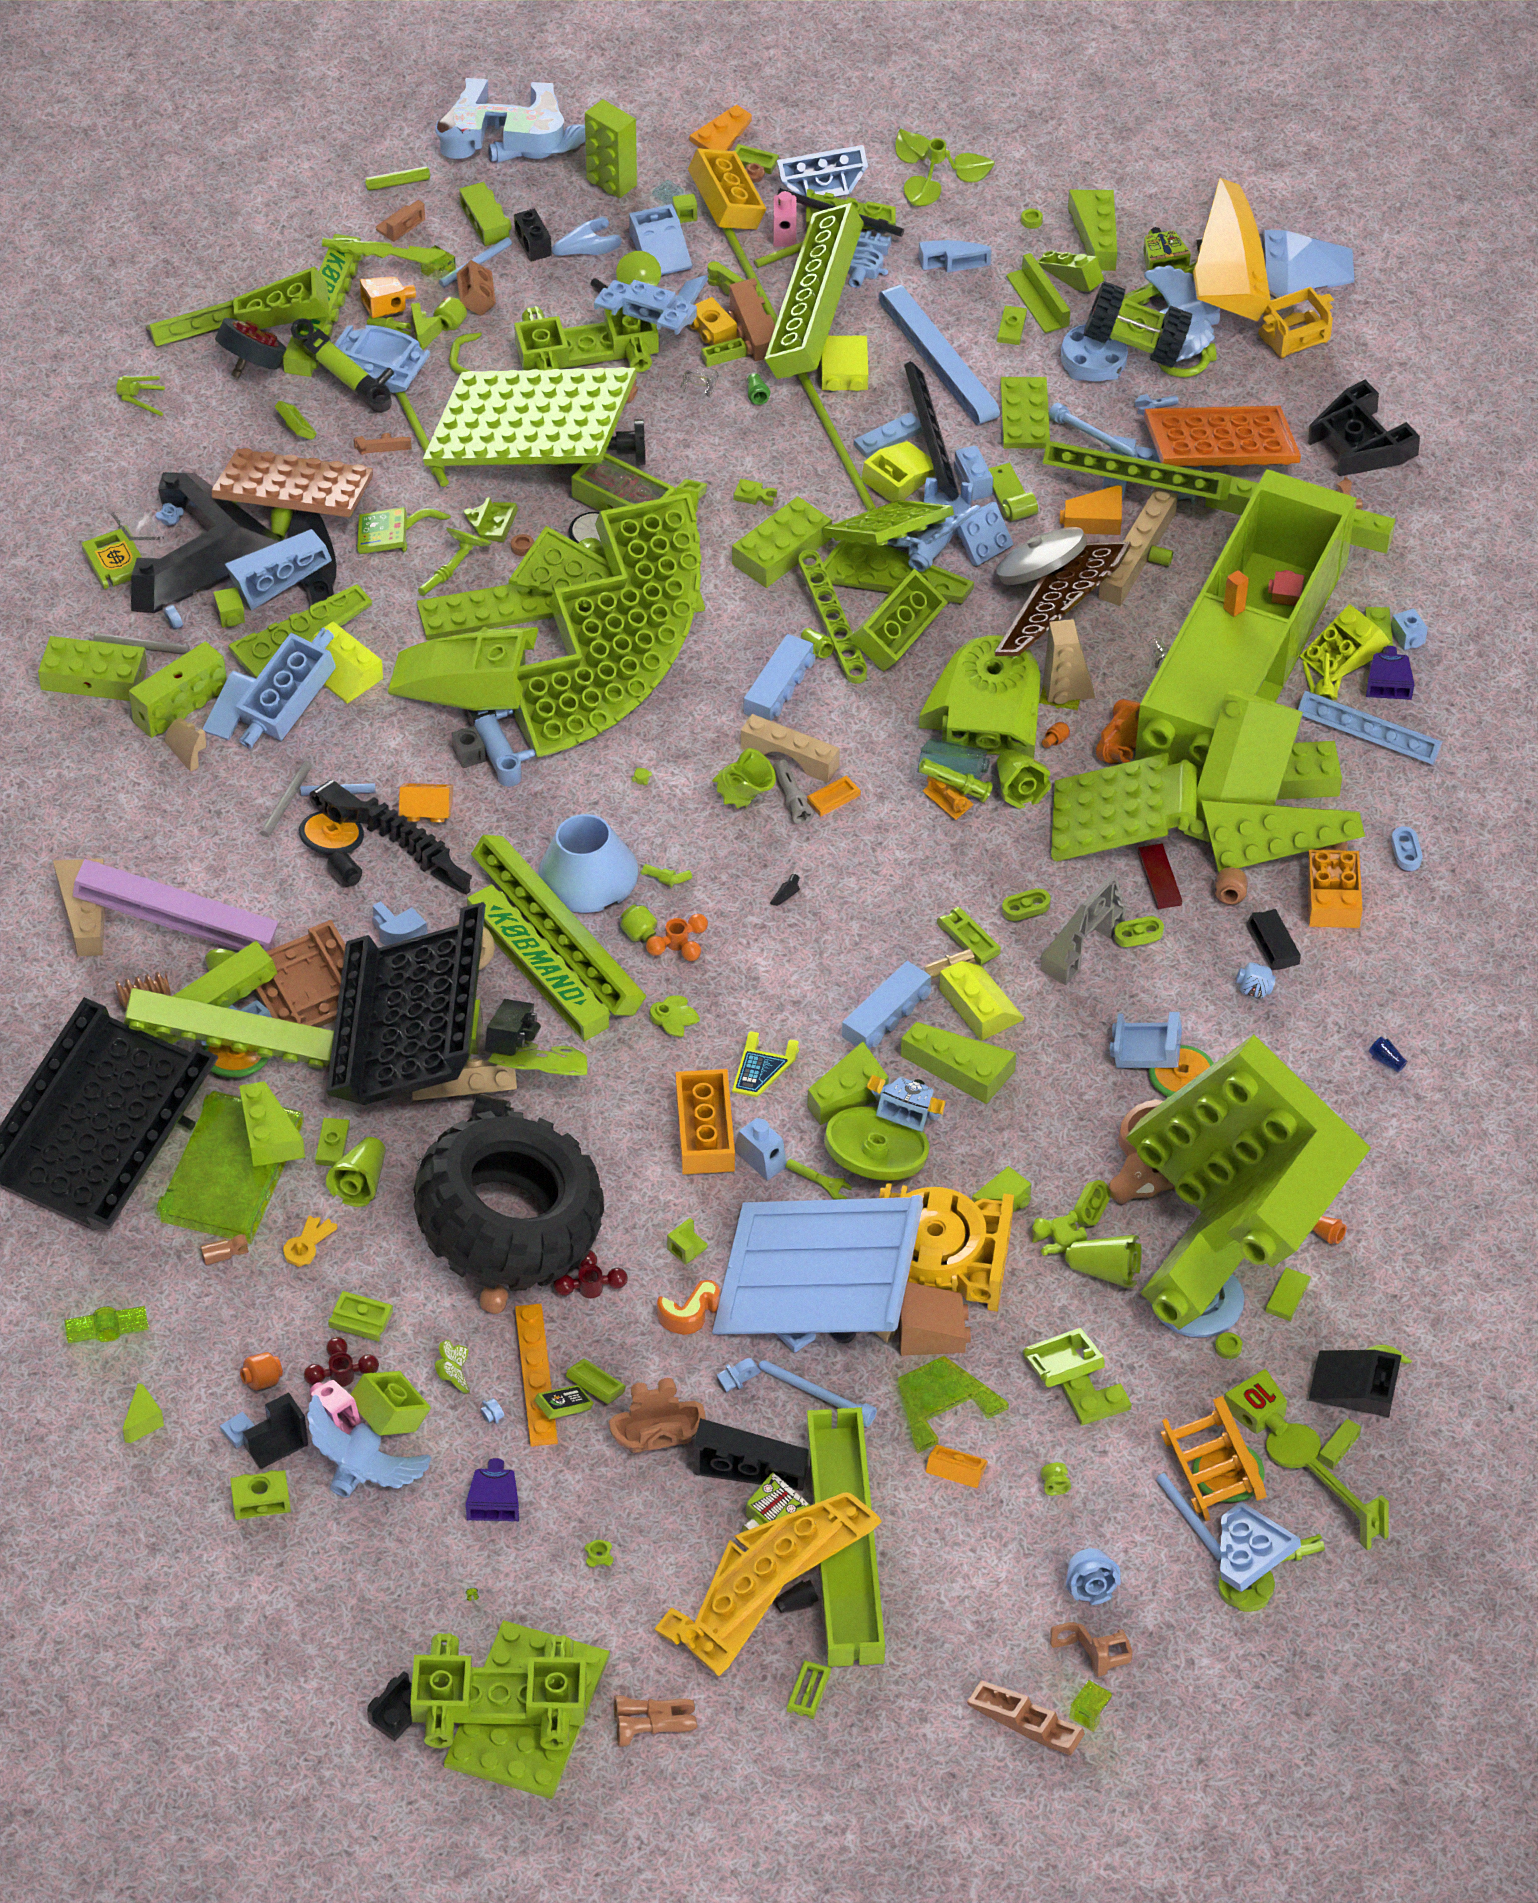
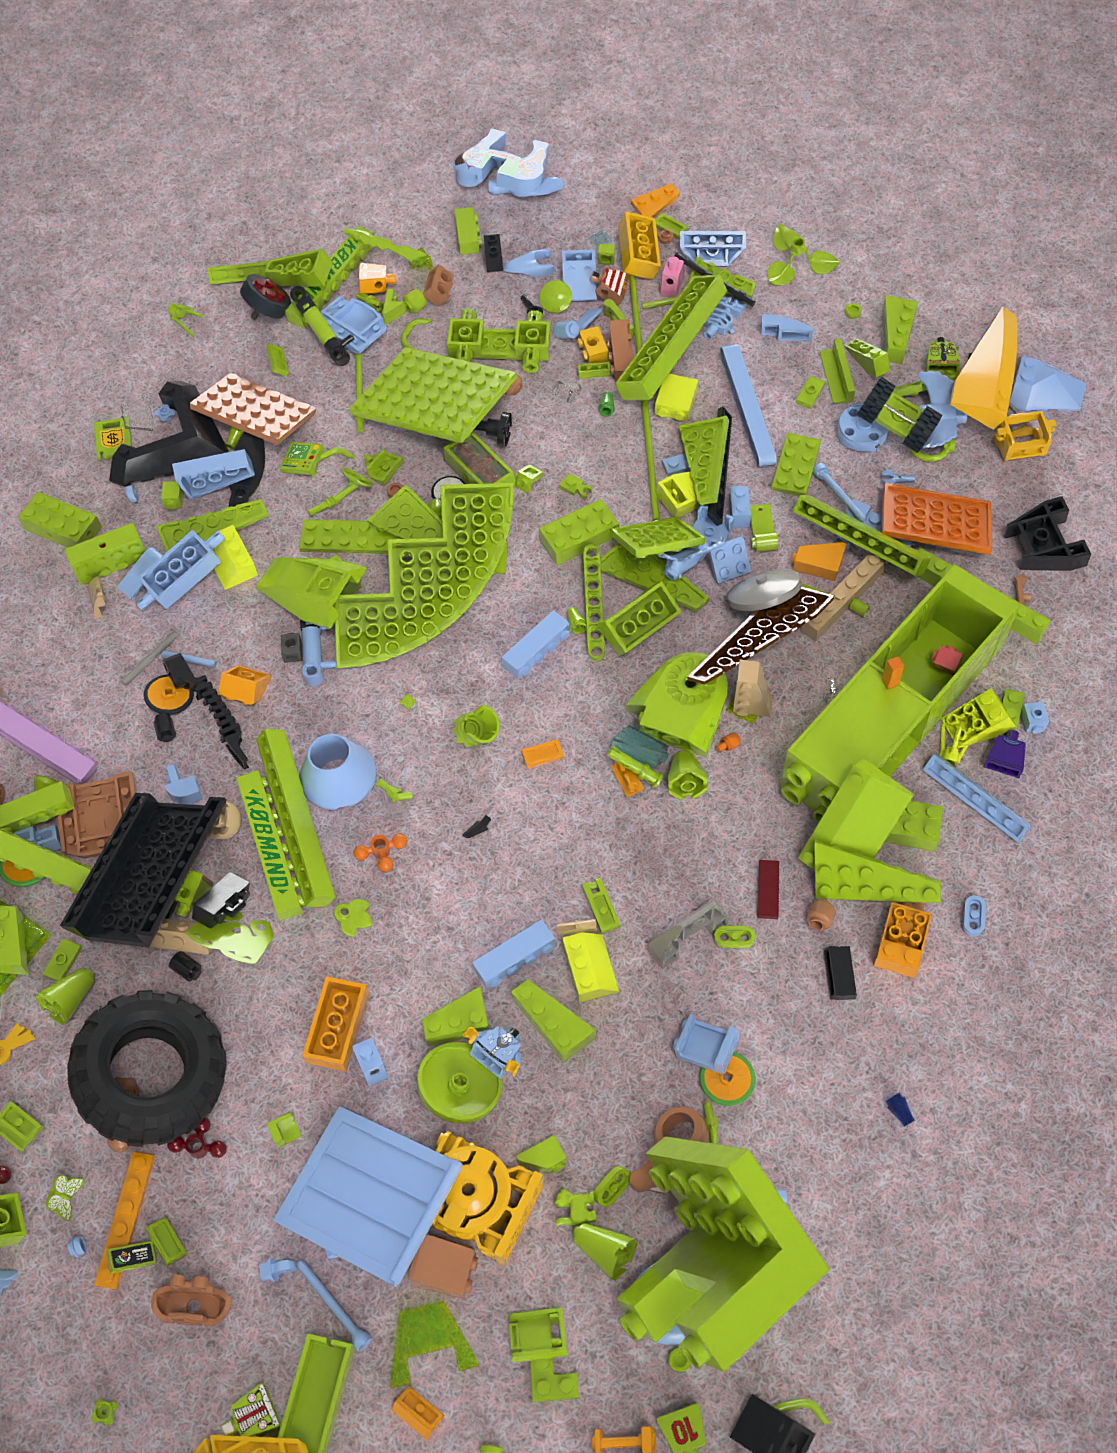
camera: 20 degrees right, 10 degrees up
(148, 644) = (104, 509): light grey bar -> none
(384, 444) = (332, 391): nougat piece -> none
(397, 178) = (420, 193): lime axle -> none
(402, 221) = (410, 225): nougat panel -> none
(481, 258) = (451, 264): light blue bar -> none
(493, 1494) = (45, 1328): dark purple torso -> none
(611, 148) = (564, 199): lime brick -> none
(638, 923) = (355, 830): lime head -> none
(648, 304) = (546, 323): light blue bracket -> none
(692, 1315) = (263, 1199): orange animal -> none
(707, 243) = (611, 284): none -> torso
(747, 1457) = (250, 1358): black wedge -> none
(761, 1068) = (401, 982): flag -> none
(795, 799) = (512, 749): light grey pin -> none
(814, 756) = (536, 716): tan arch -> none
(831, 1185) = (416, 1106): lime piece -> none
(910, 417) = (705, 451): none -> lime wing
(1025, 904) = (654, 887): lime plate -> none
(1120, 734) = (773, 758): orange piece -> none
(1122, 805) = (755, 824): lime plate -> none
(1255, 980) = (813, 1008): light blue head -> none

